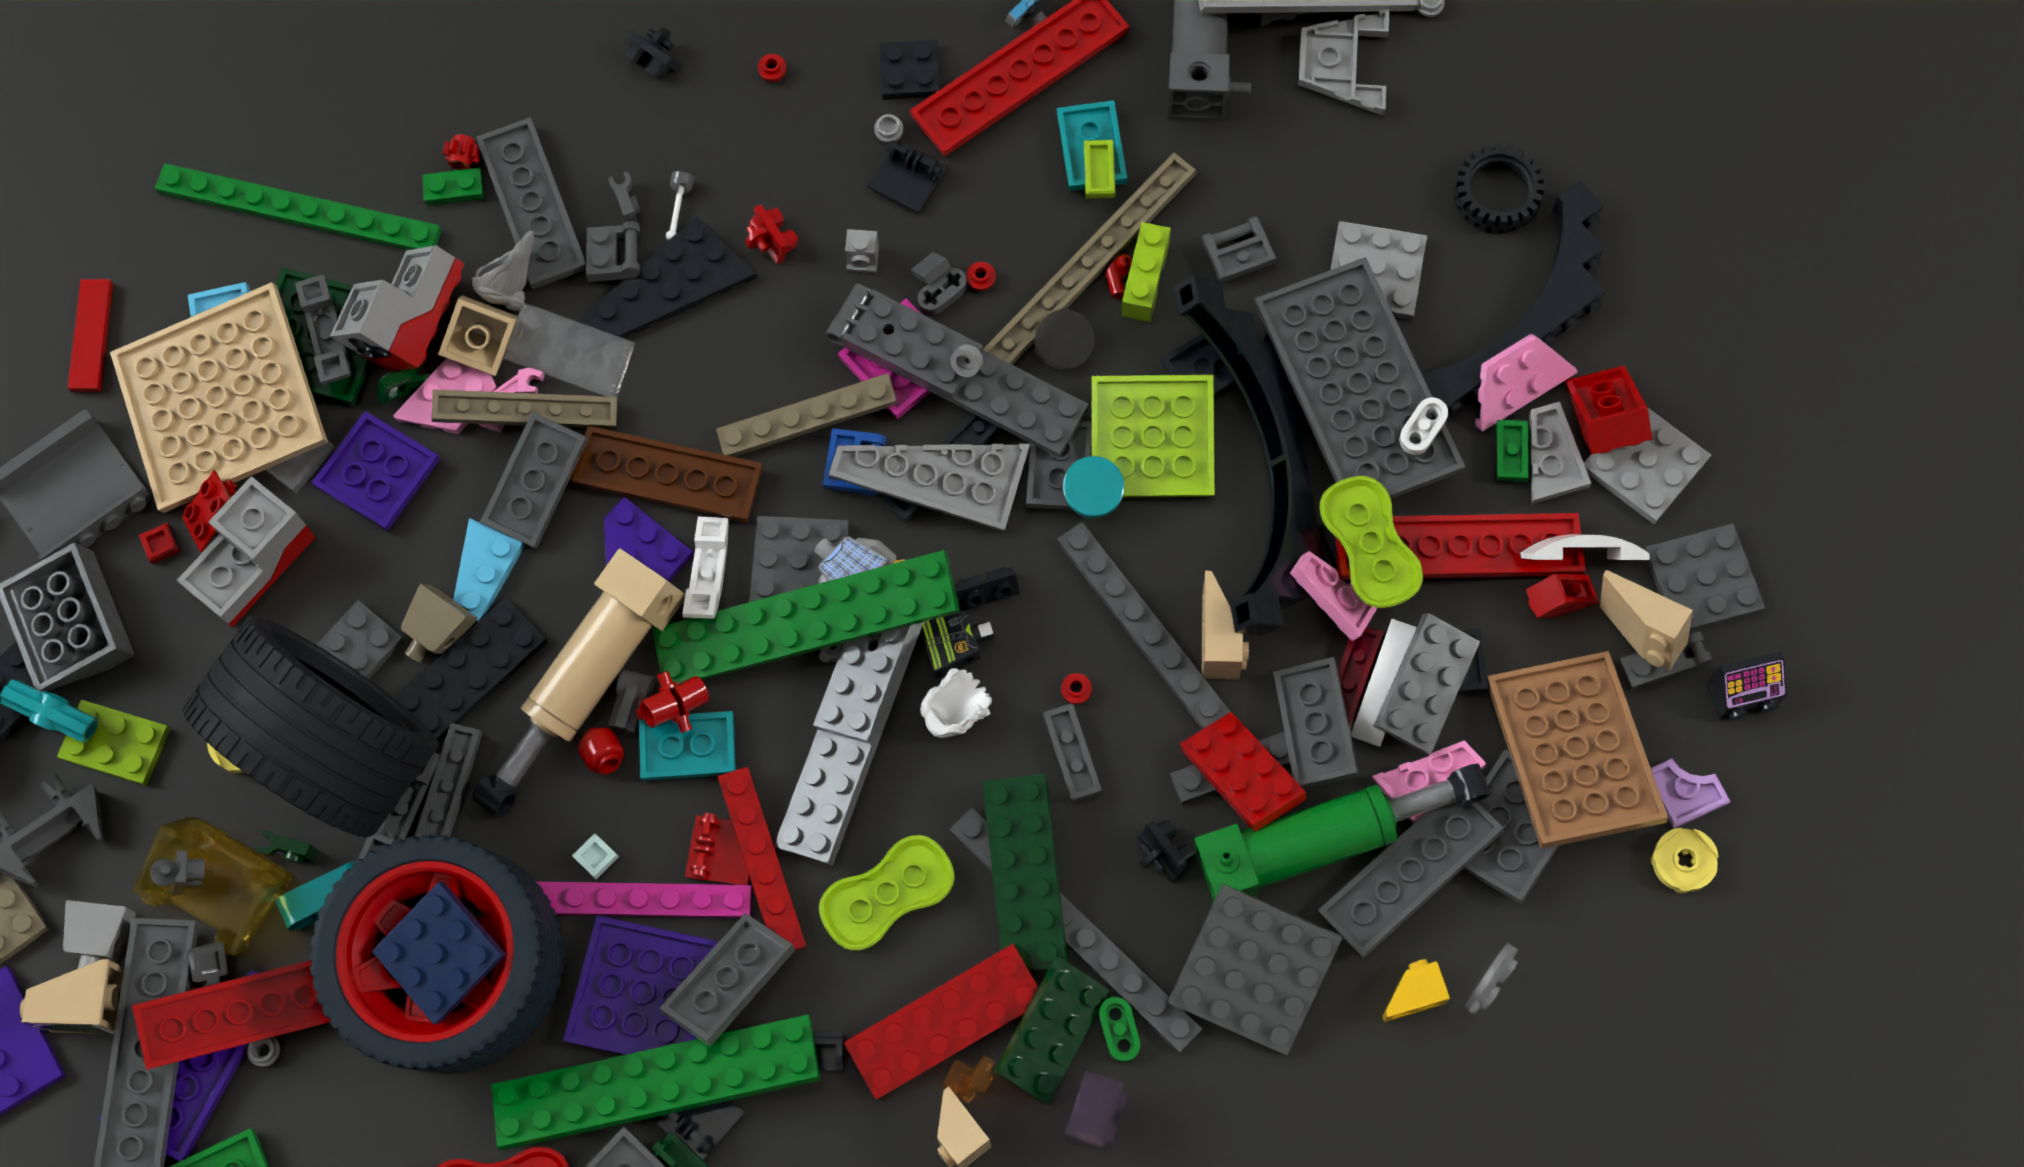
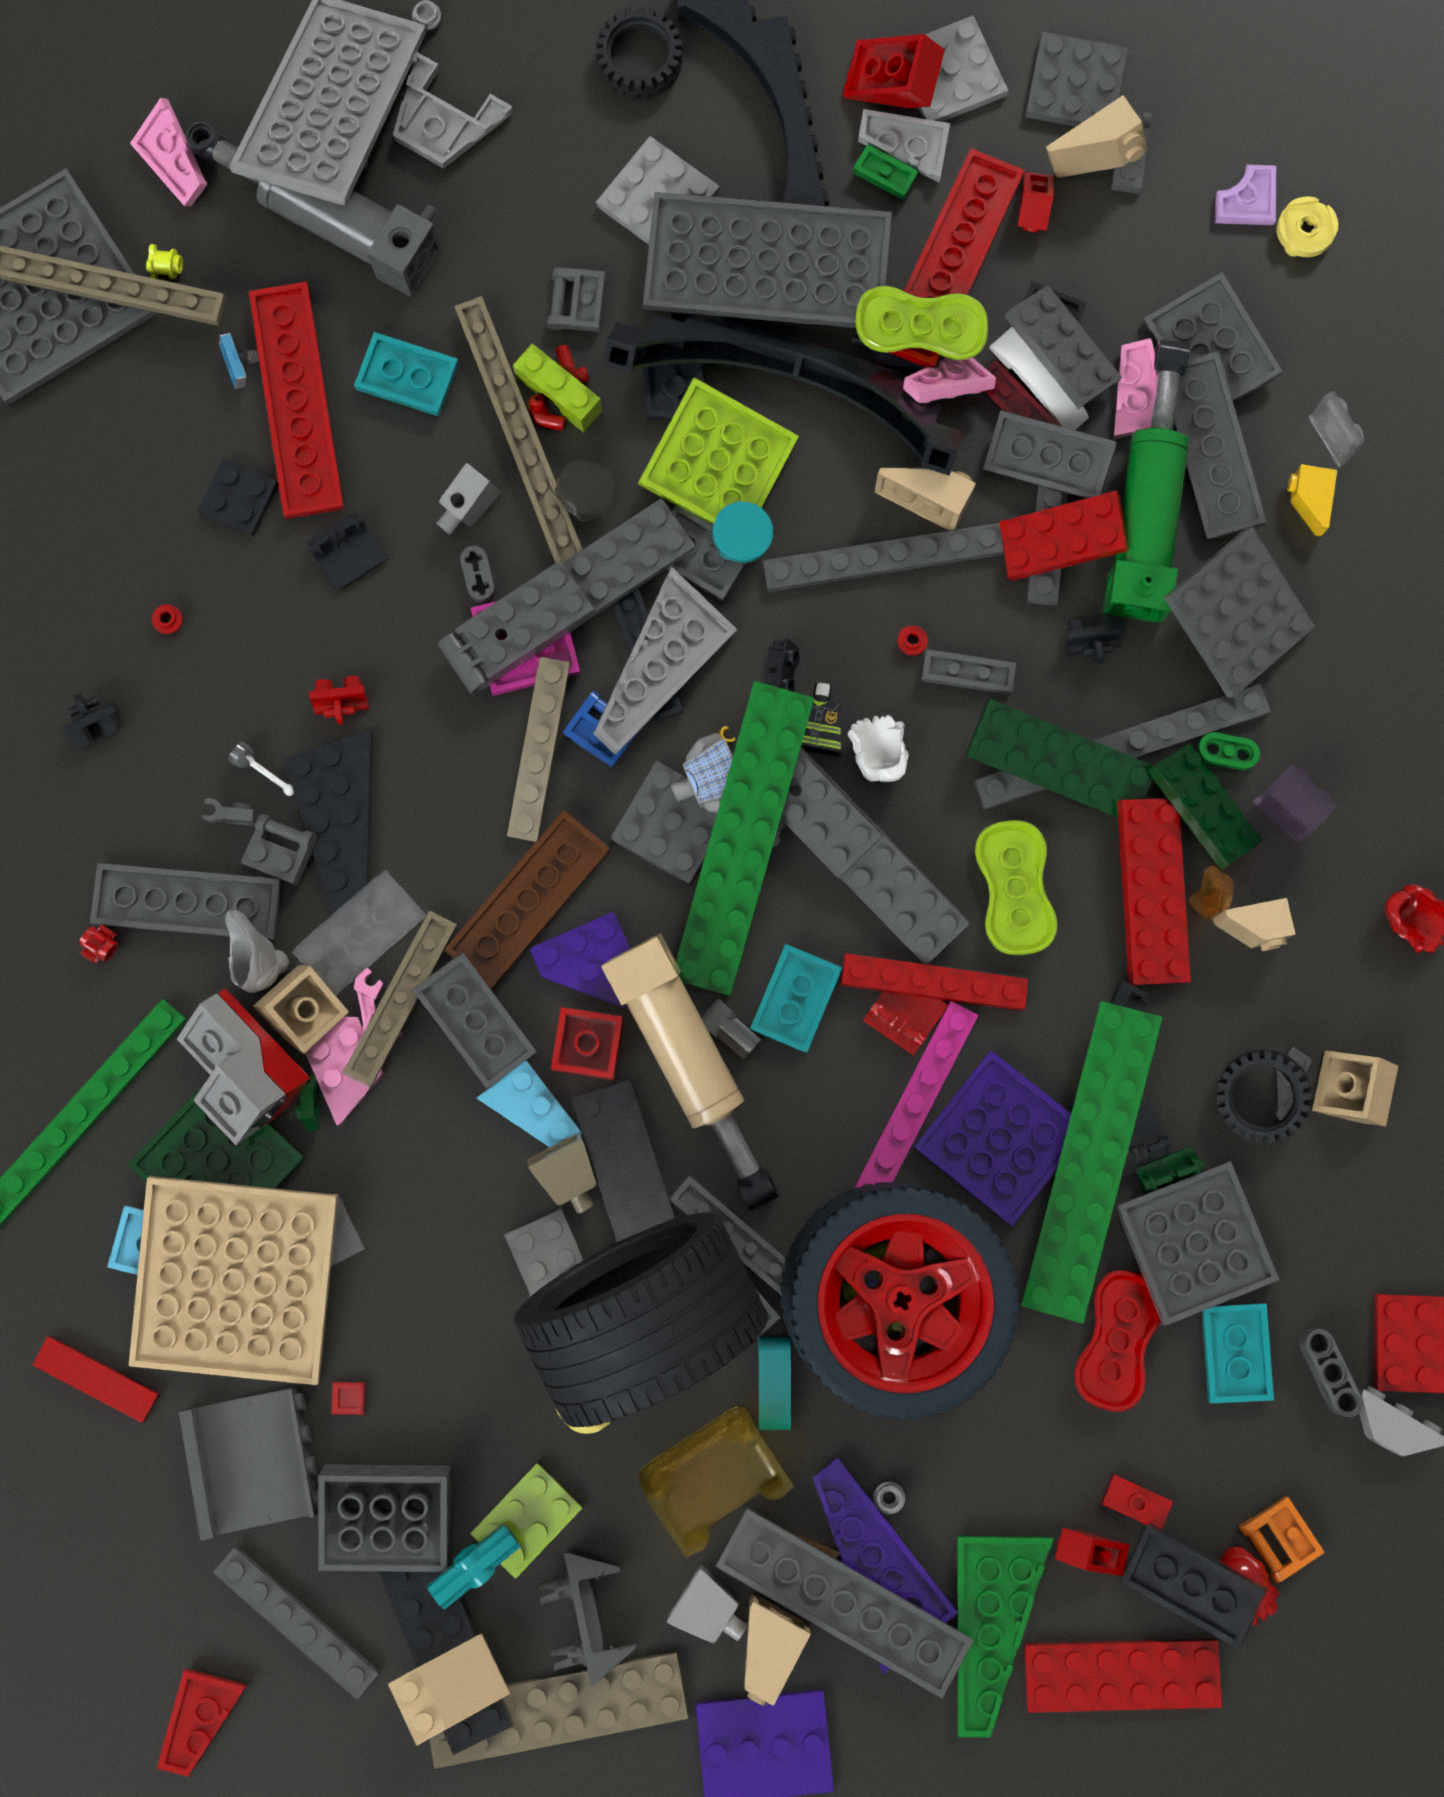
camera: 65 degrees left, 10 degrees up
(180, 872) = (693, 1506): dark grey hips -> none
(206, 504) = (349, 1334): red hinge -> none
(207, 963) = (793, 1515): dark grey plate -> none
(227, 1015) = (852, 1507): red plate -> none
(253, 549) = (410, 1317): light grey piece -> none
(294, 850) = (717, 1393): dark green plate -> none
(321, 316) = (220, 1150): dark grey slope -> none
(376, 471) = (384, 1164): dark purple plate -> none
(439, 953) = (911, 1291): dark blue plate -> none
(453, 186) = (127, 968): green plate -> none
(557, 584) = (587, 1043): none -> red brick
(595, 856) = (857, 1125): light aqua plate -> none
(601, 750) = (763, 1076): red head -> none
(673, 702) = (756, 990): red pin -> none
(708, 568) = (640, 905): white slope -> none
(727, 979) = (1033, 1057): dark grey plate -> none
(862, 251) = (402, 625): light grey brick -> none
(888, 128) = (289, 544): light grey plate -> none
(931, 268) = (451, 572): dark grey tile -> none
(966, 360) = (575, 577): light grey tile -> none
(980, 284) = (485, 541): red plate -> none
(1003, 246) = (473, 491): none -> light grey torso
(1099, 169) = (437, 377): lime tile -> none
(1171, 272) = (566, 361): none -> red arm
(1422, 427) = (842, 226): white plate -> none
(1518, 378) = (826, 130): bright pink wing -> none
(1553, 547) = (997, 180): white slope -> none
(1576, 750) = (1178, 259): medium nougat plate -> none
(1749, 686) = (1192, 96): black slope -> none

